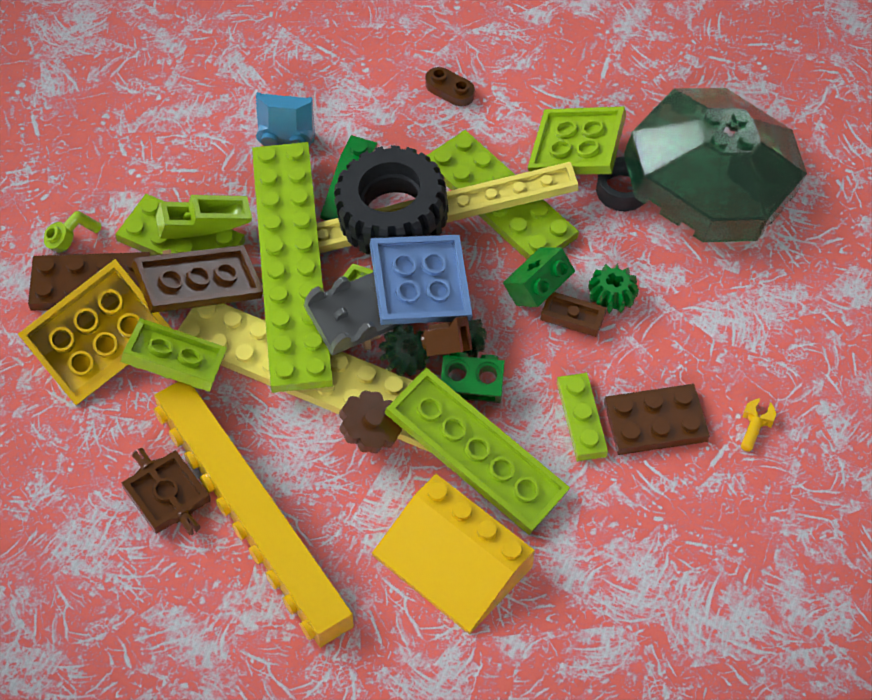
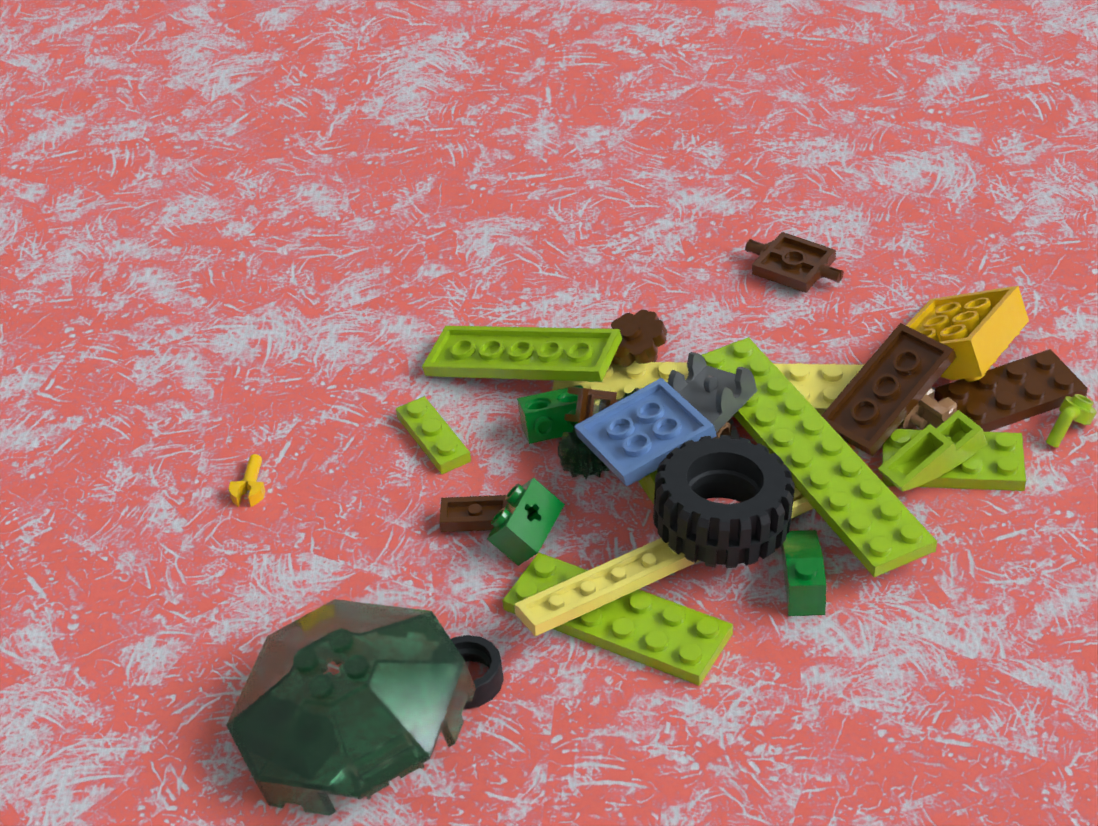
camera: 165 degrees right, 15 degrees down
(174, 354) = (854, 319): lime plate -> none
(254, 514) = (716, 272): yellow brick -> none
(284, 119) = (923, 586): dark azure slope -> none
(447, 86) = (752, 737): reddish brown plate -> none
(454, 553) = (505, 298): yellow slope -> none
(579, 136) = (542, 688): lime plate -> none
(613, 288) = (438, 547): green gear -> none
(656, 419) = (355, 455): reddish brown plate -> none

